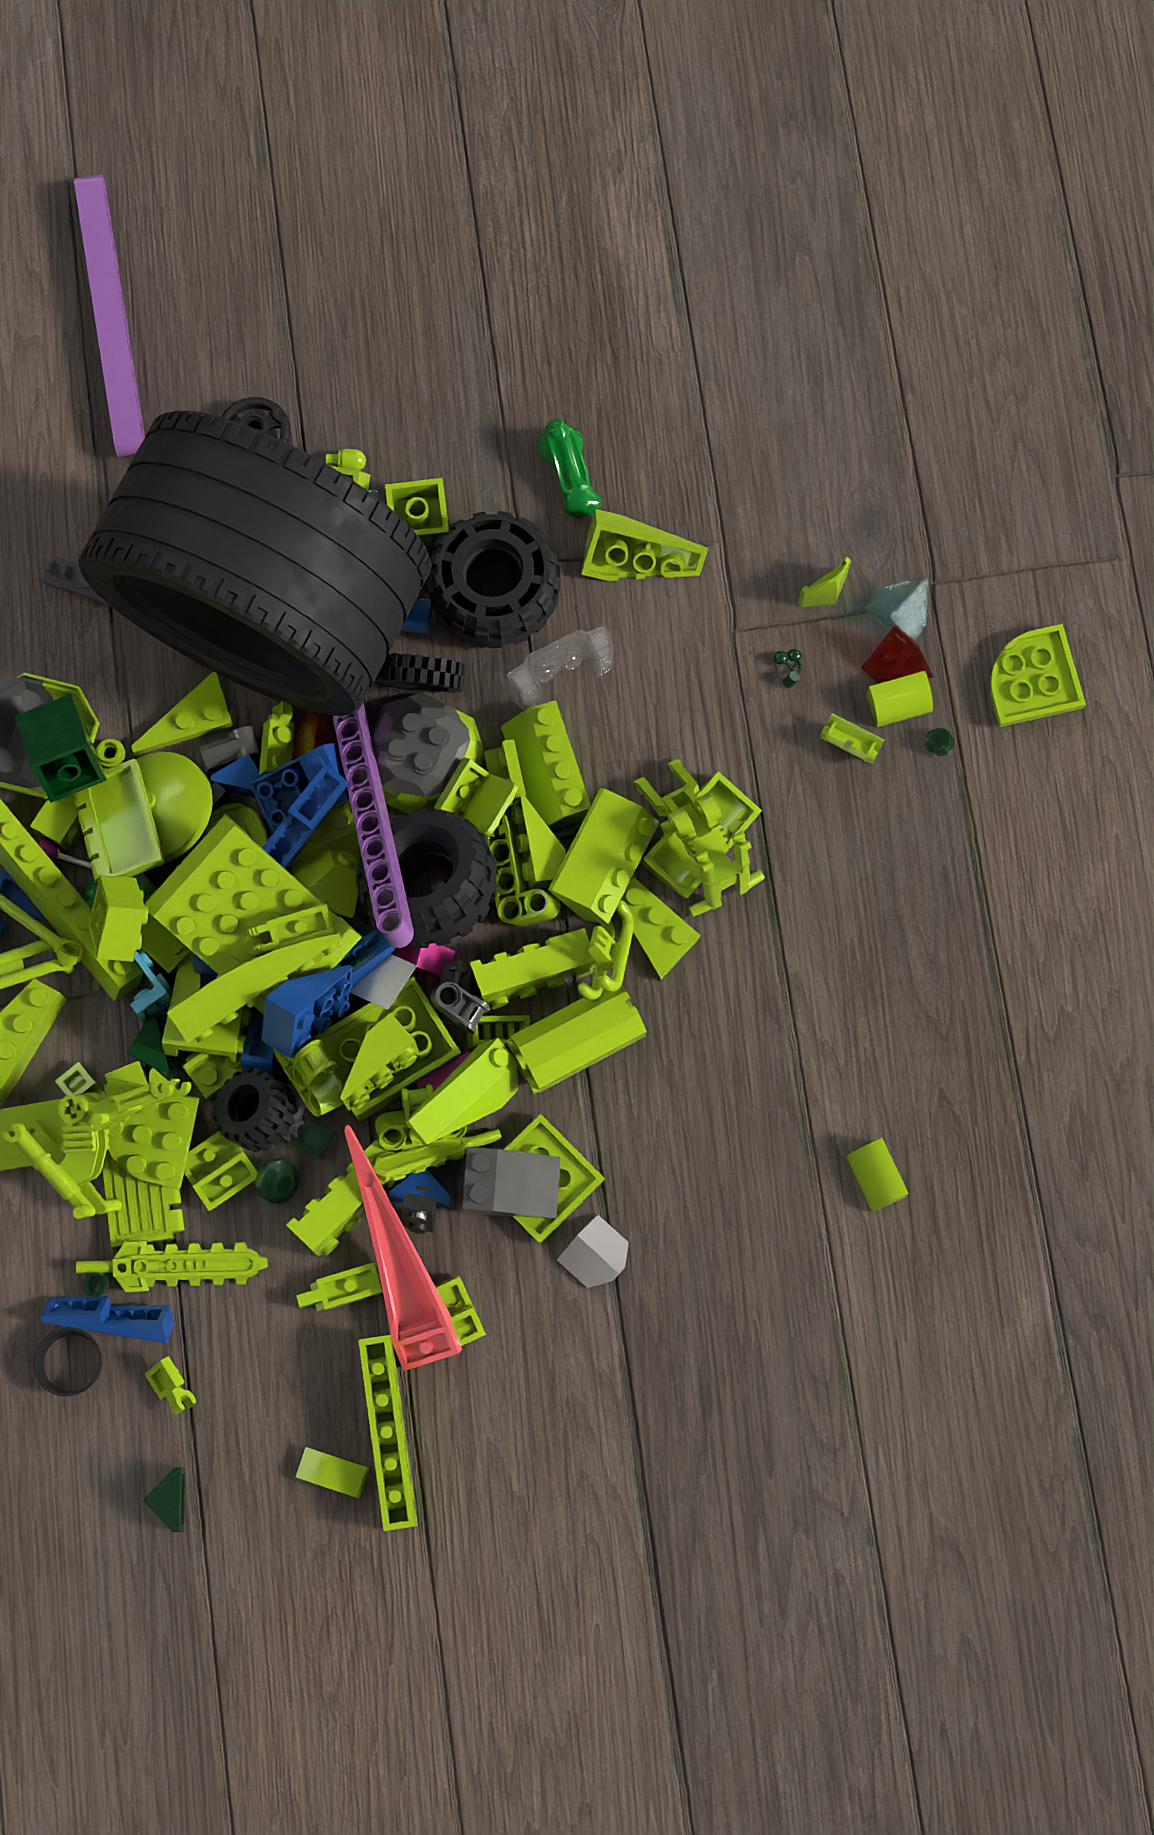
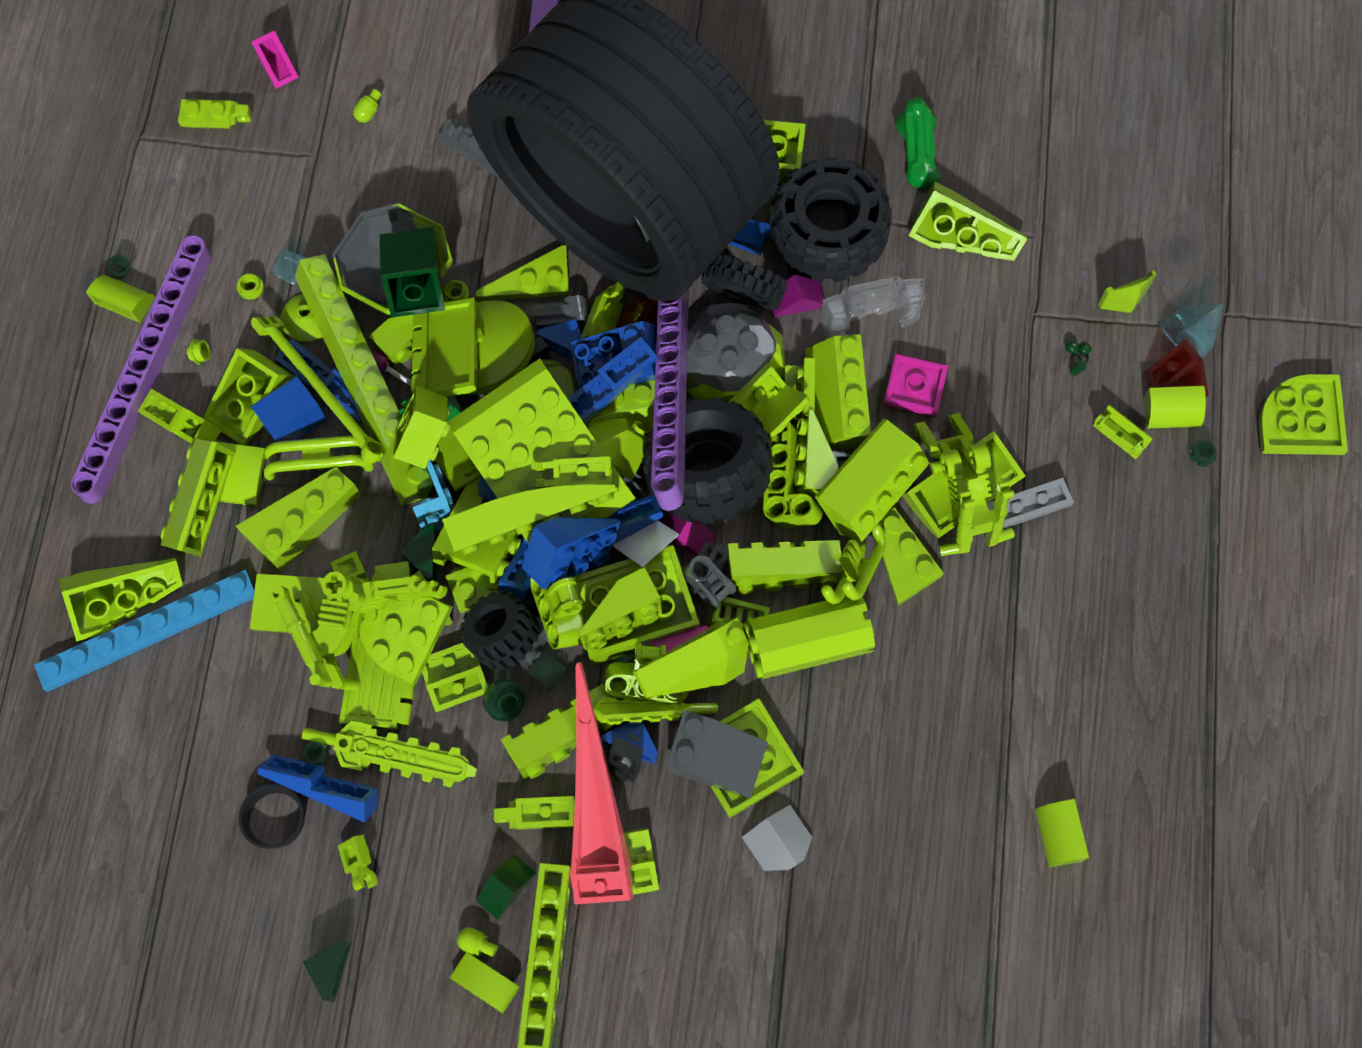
camera: 15 degrees right, 5 degrees down
(312, 1435) = (475, 942): none -> lime cylinder
(328, 1371) = (505, 886): none -> dark green slope
(482, 669) = (800, 296): none -> magenta slope
(626, 739) = (915, 385): none -> dark pink plate
(778, 837) = (1036, 502): none -> light grey plate

